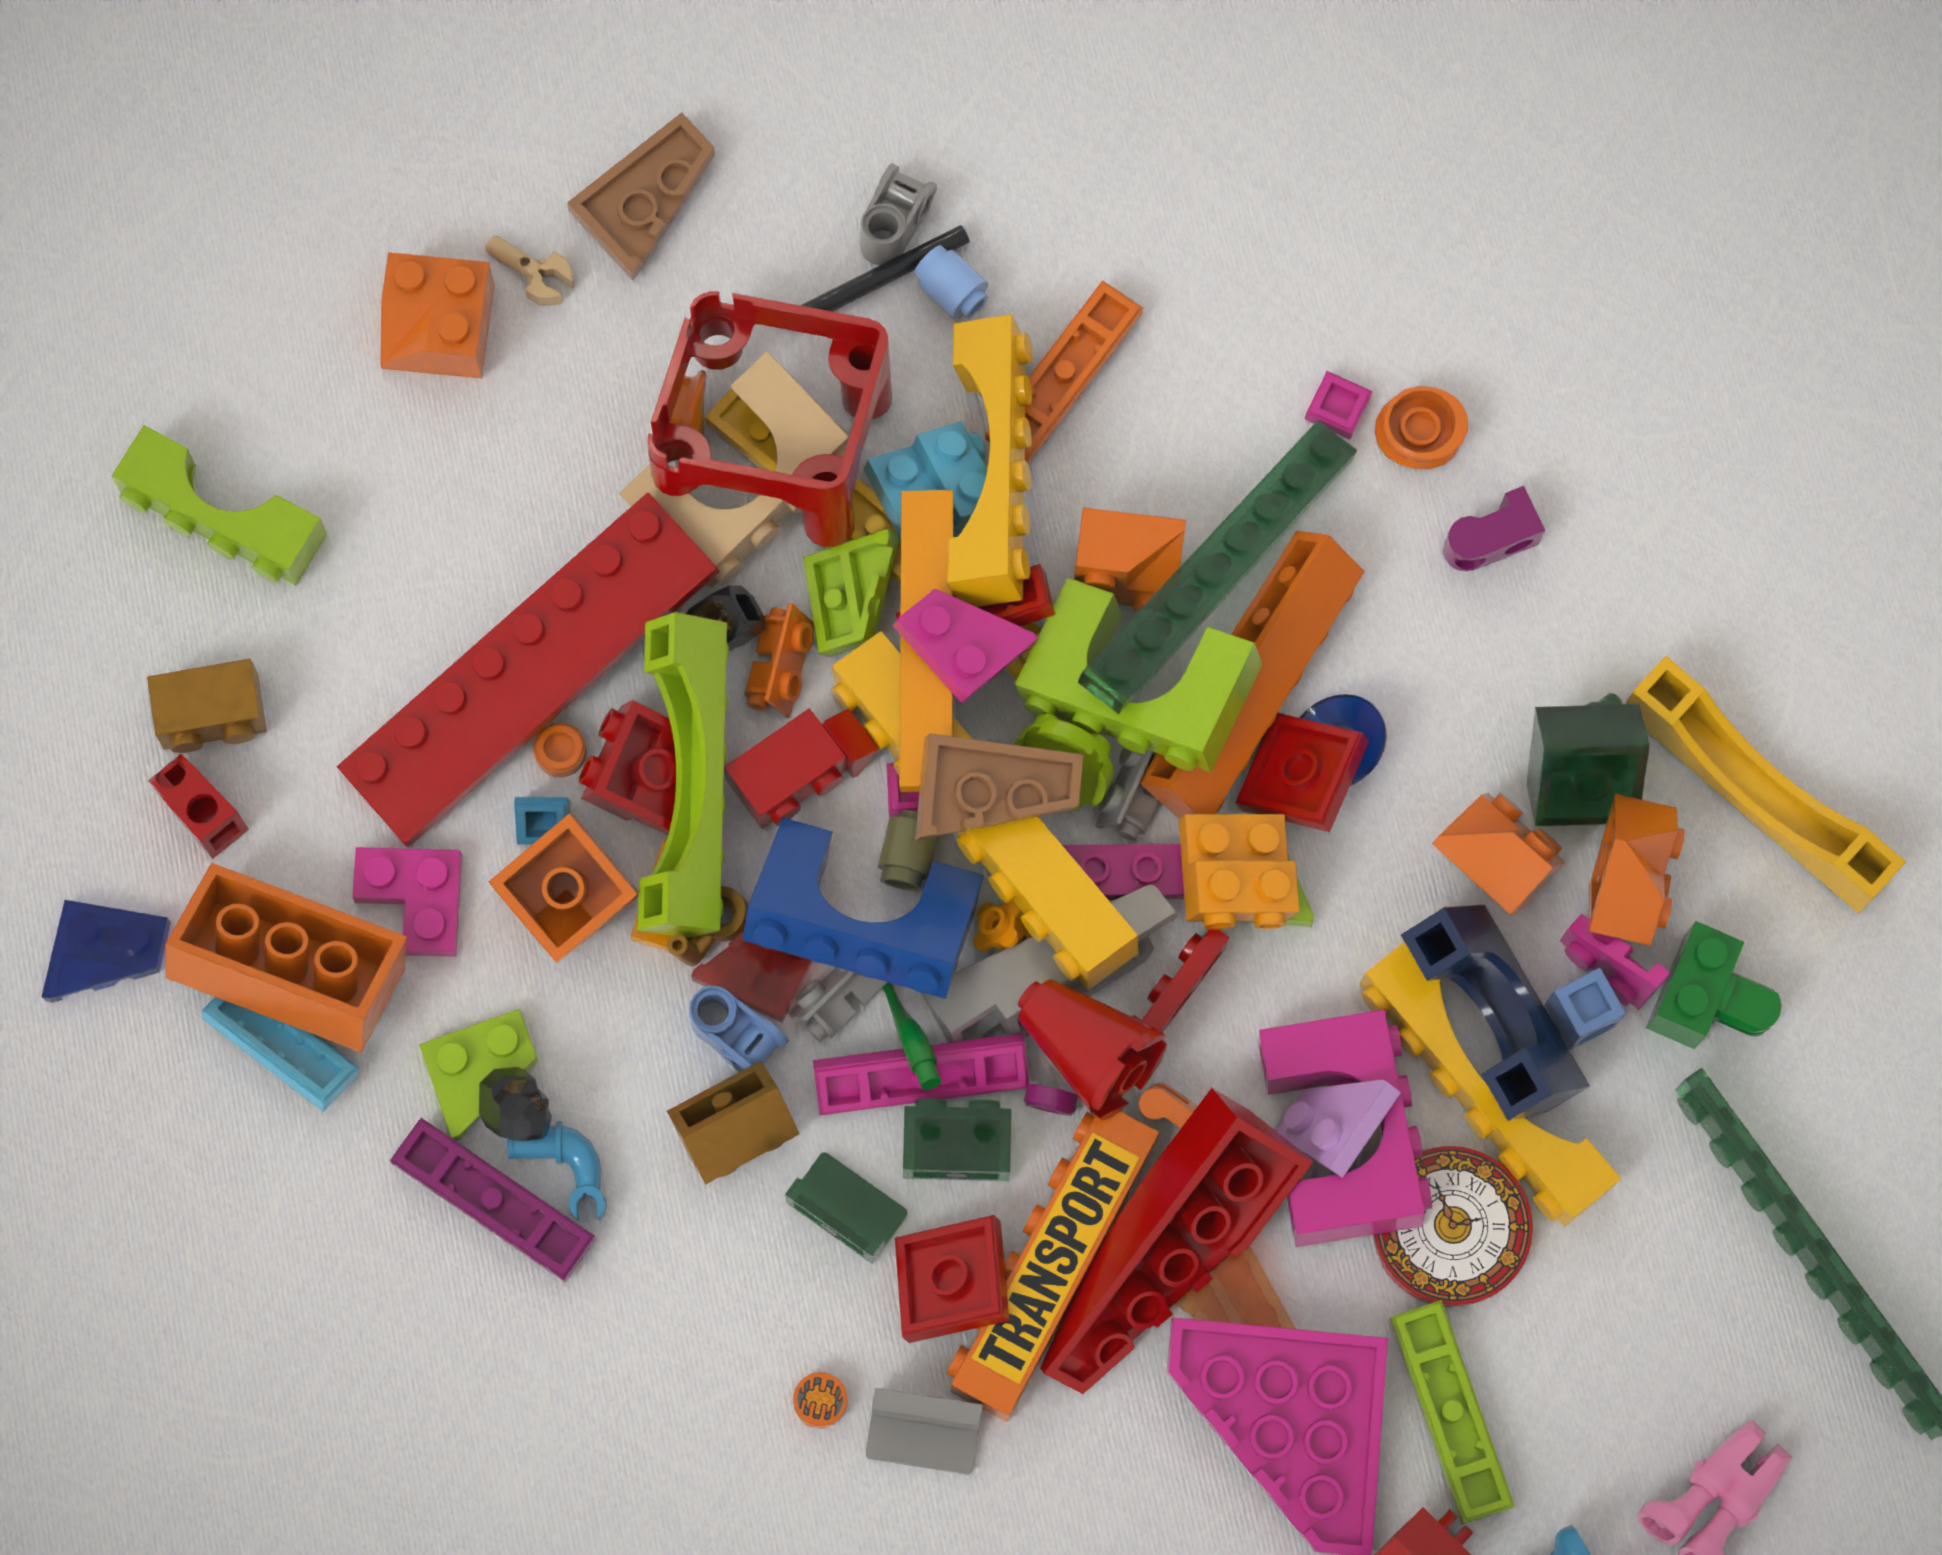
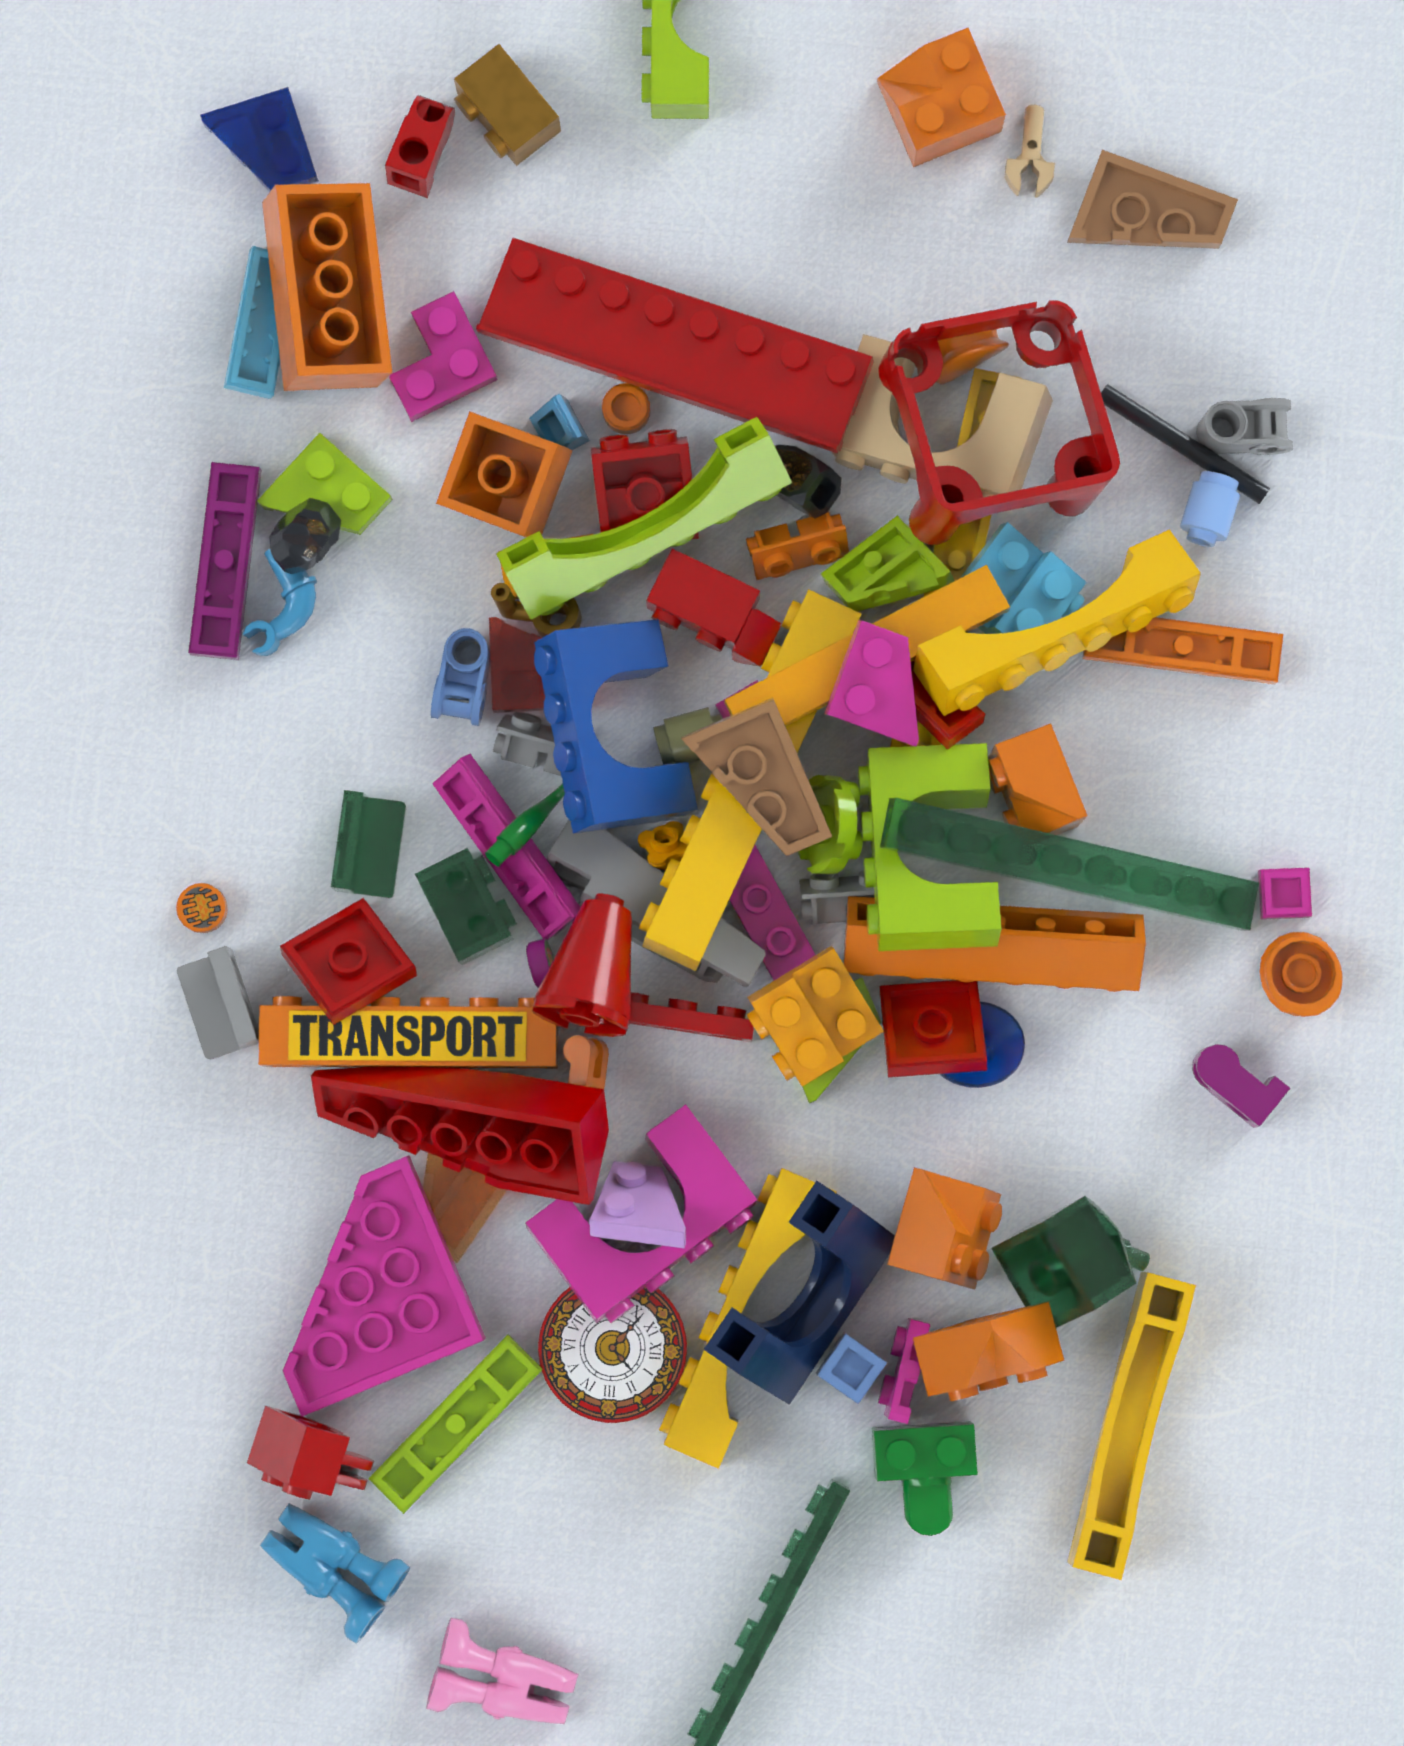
camera: 70 degrees right, 10 degrees up
(733, 1122) = (383, 716): pearl gold brick -> none

